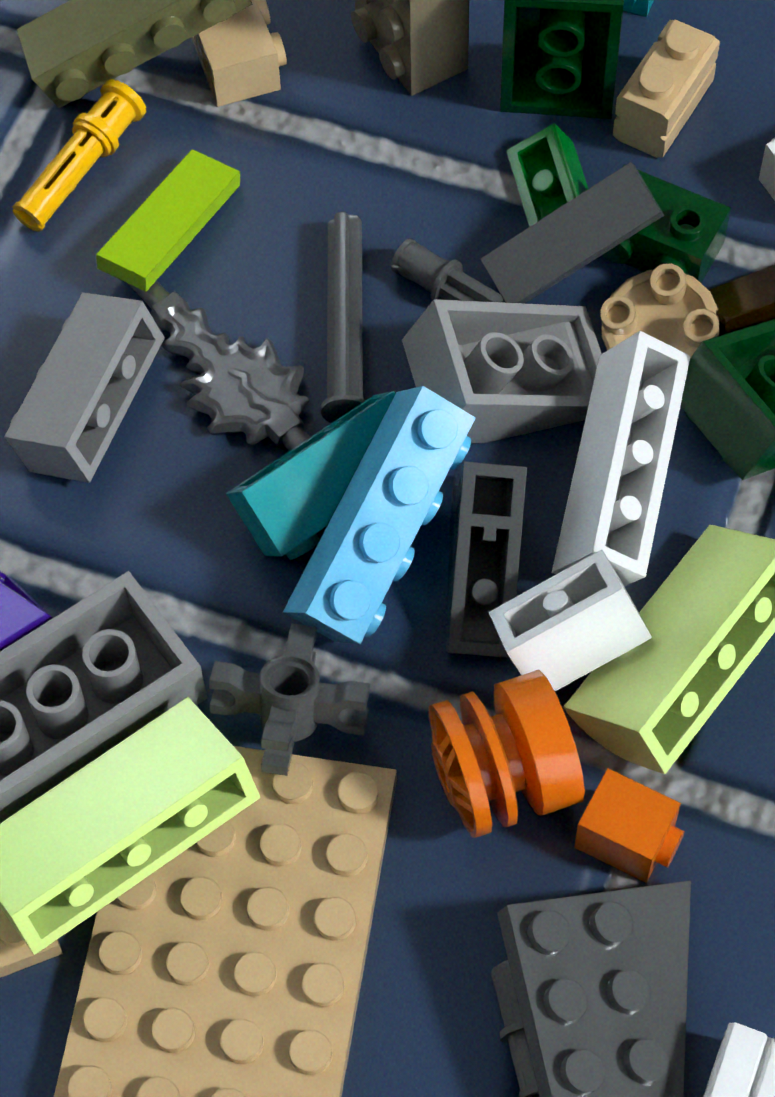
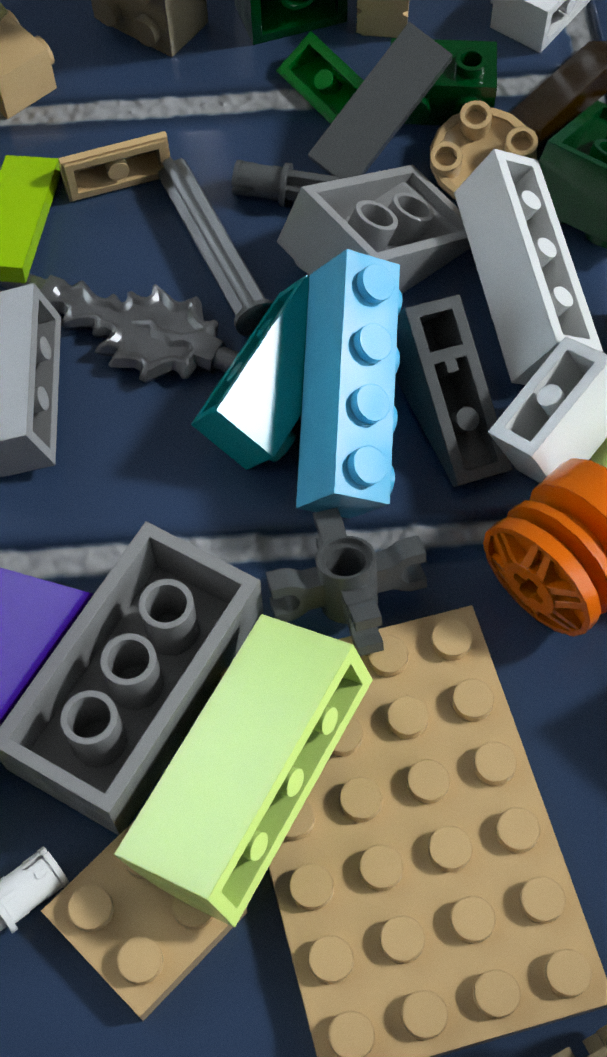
camera: 25 degrees left, 0 degrees up
(287, 201) = (114, 166): none -> tan slope

